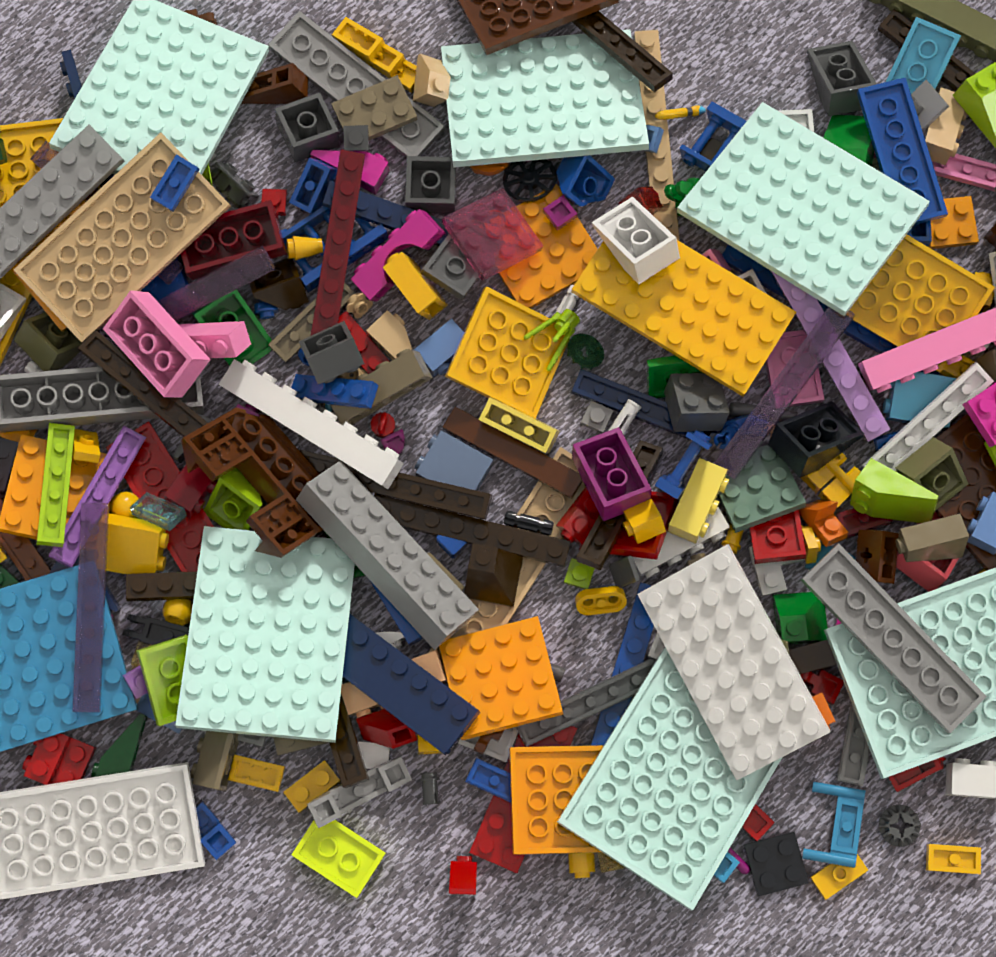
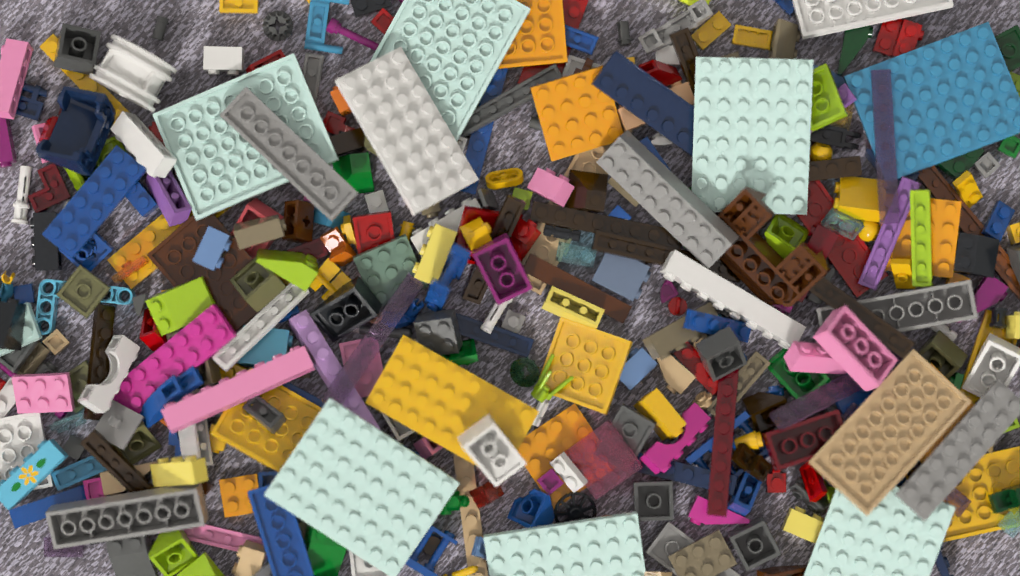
camera: 175 degrees right, 10 degrees up
(31, 308) = (956, 379): none -> green plate
(174, 183) = (852, 473): blue plate -> none
(226, 186) = (813, 482): none -> red plate
(244, 148) = (802, 525): none -> light yellow brick
(303, 219) = (750, 462): none -> dark brown slope
(356, 138) = (714, 532): dark grey plate -> none
(512, 495) = (575, 254): none -> clear light blue plate
(536, 222) = (568, 472): none -> white plate
(540, 583) = (550, 186): none -> bright pink brick
(821, 818) = (336, 27): none -> magenta piece
(924, 309) = (265, 414): none -> dark grey slope

